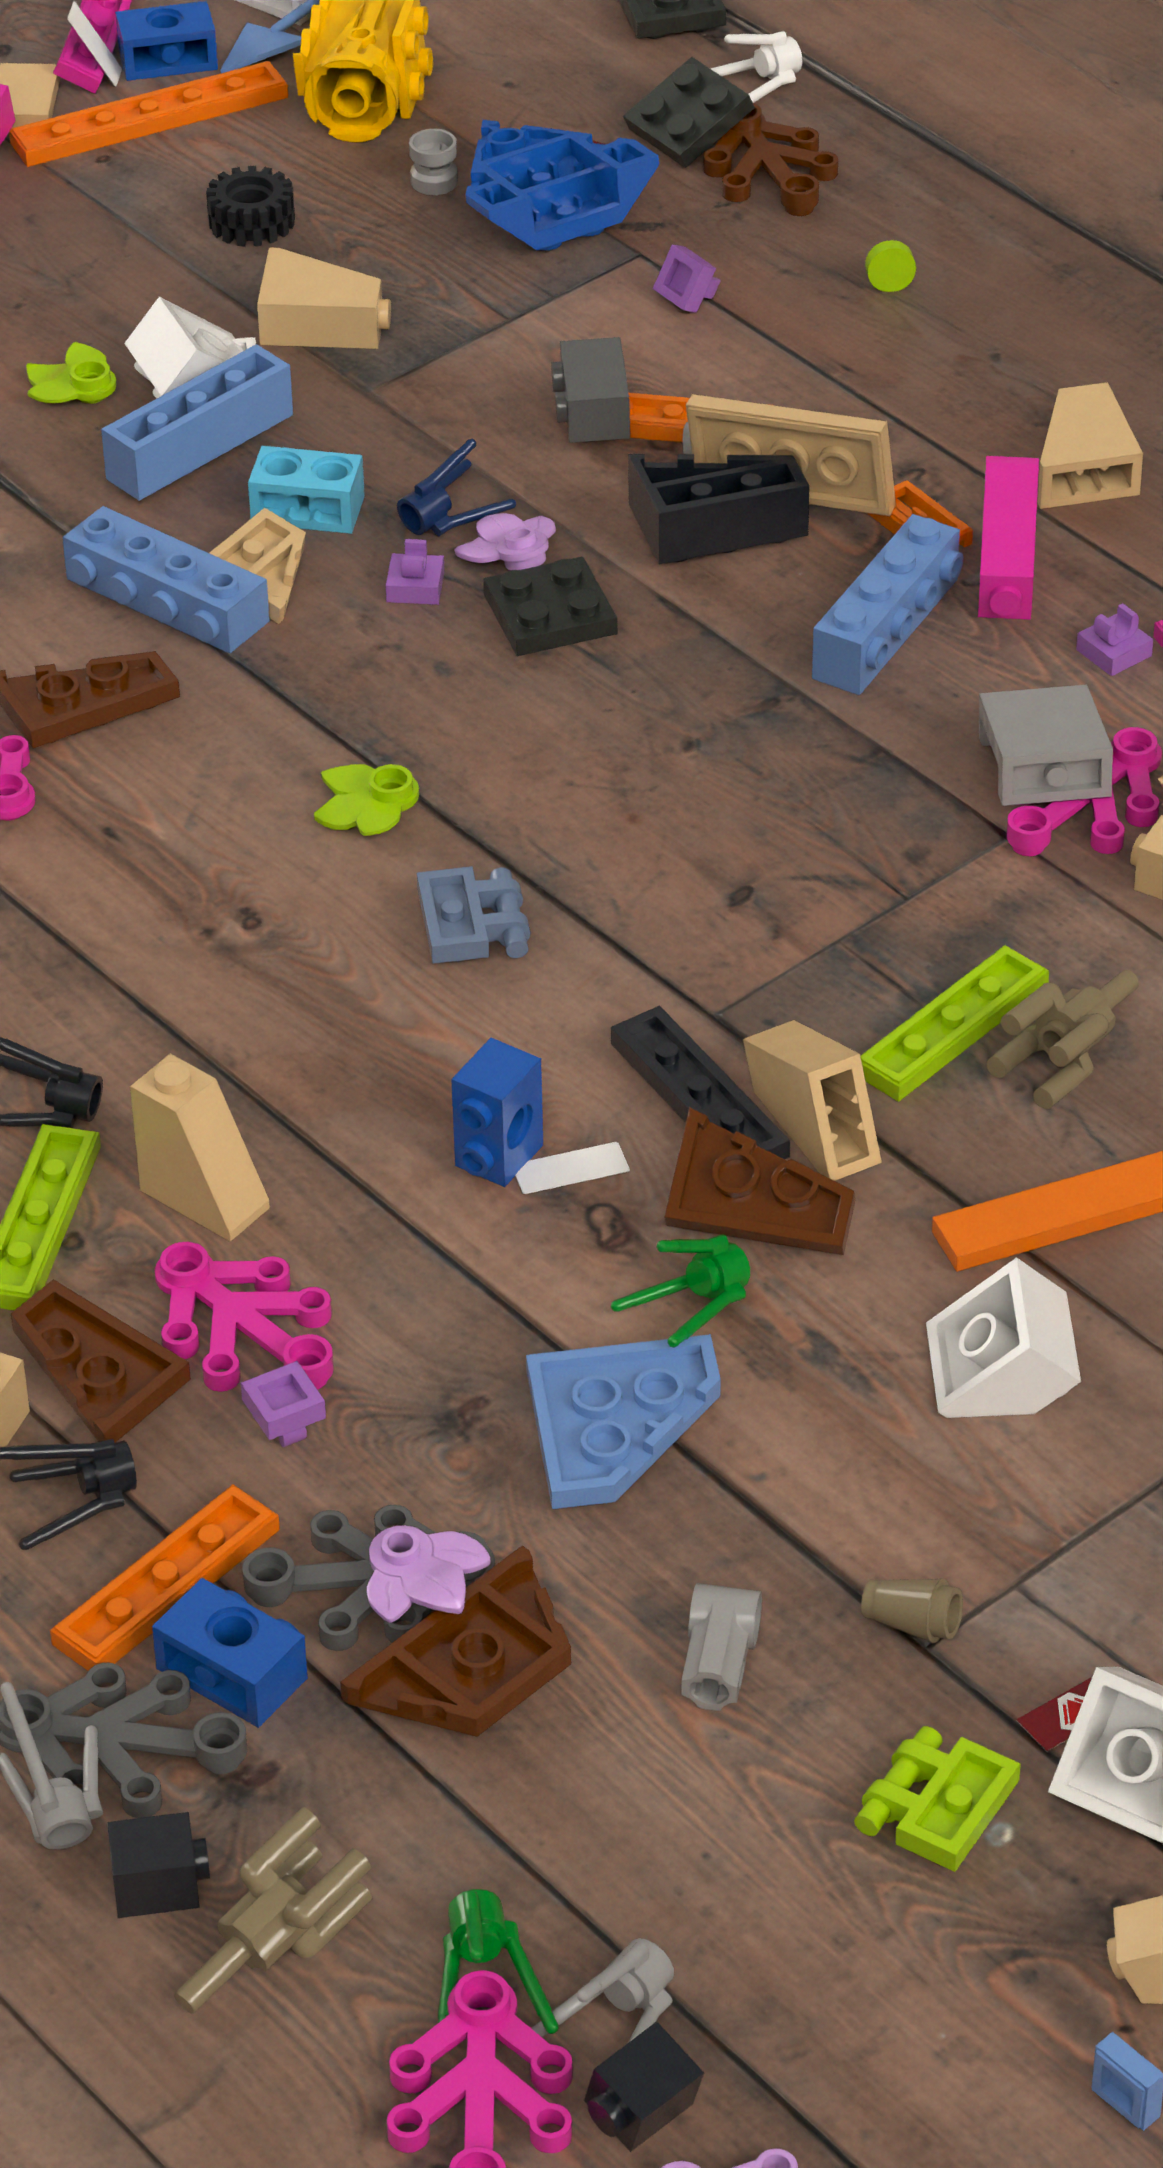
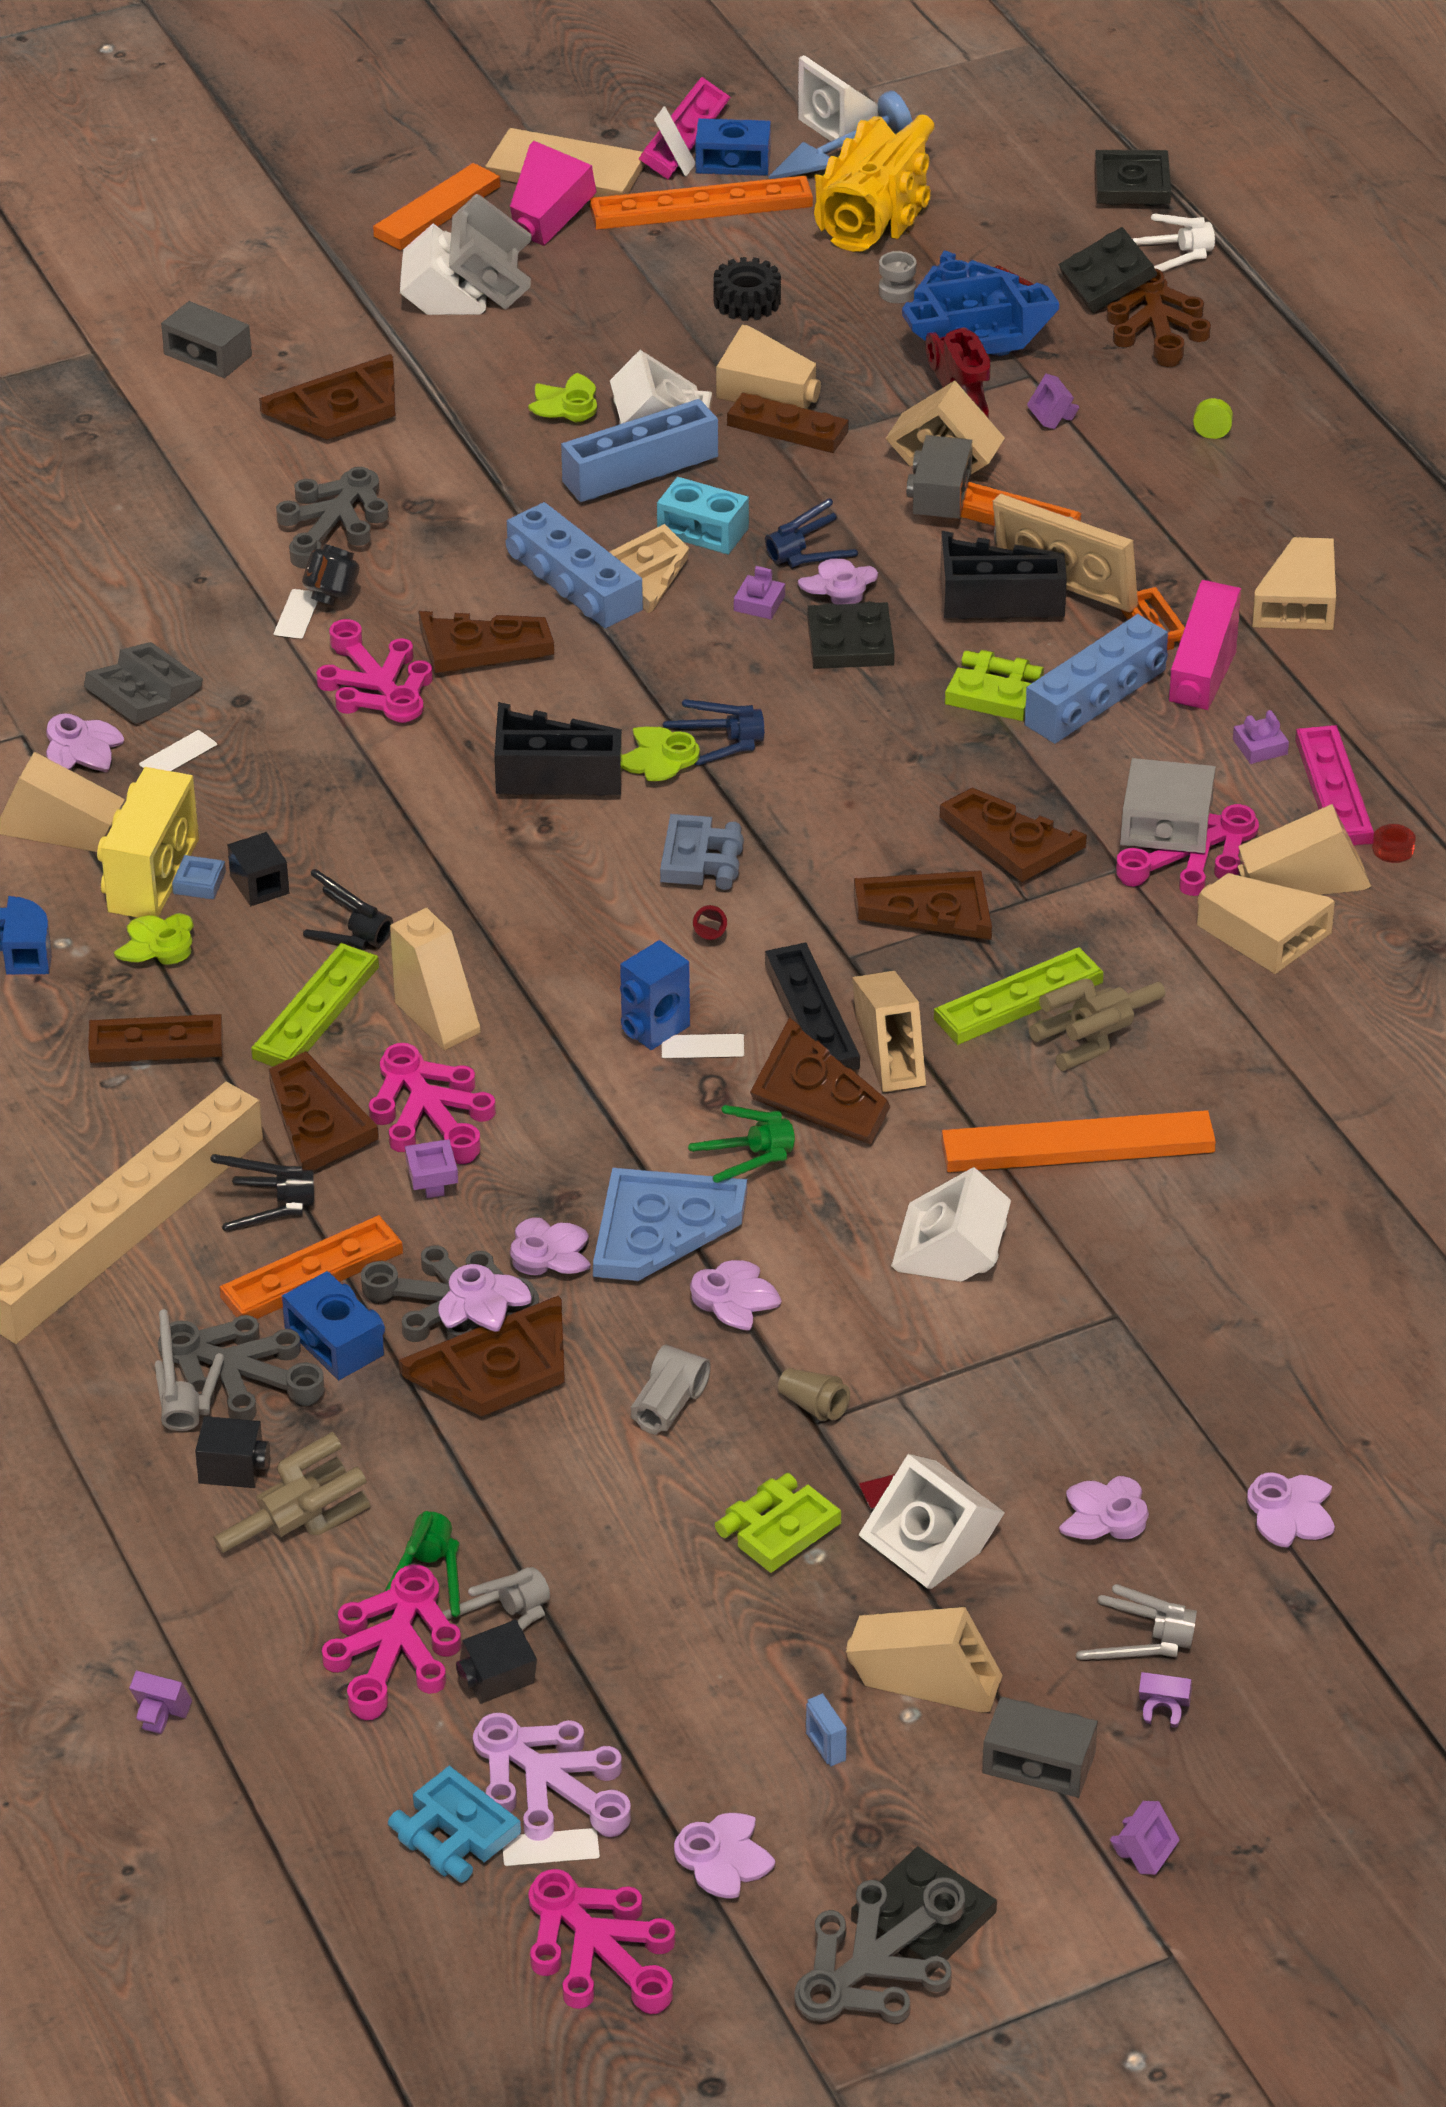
camera: 15 degrees right, 0 degrees up
(240, 827) = (555, 756): none -> black wedge
(364, 358) = (787, 422): none -> reddish brown plate
(465, 743) = (744, 726): none -> dark blue plant
(477, 1481) = (547, 1246): none -> lavender plate
(523, 991) = (713, 913): none -> dark red hinge
(564, 253) = (960, 359): none -> dark red piece
(571, 311) = (946, 414): none -> tan brick
(749, 1492) = (733, 1292): none -> lavender plate
(756, 646) = (990, 693): none -> lime plate
(790, 923) = (930, 902): none -> reddish brown wing
(863, 824) = (1008, 837): none -> reddish brown wing

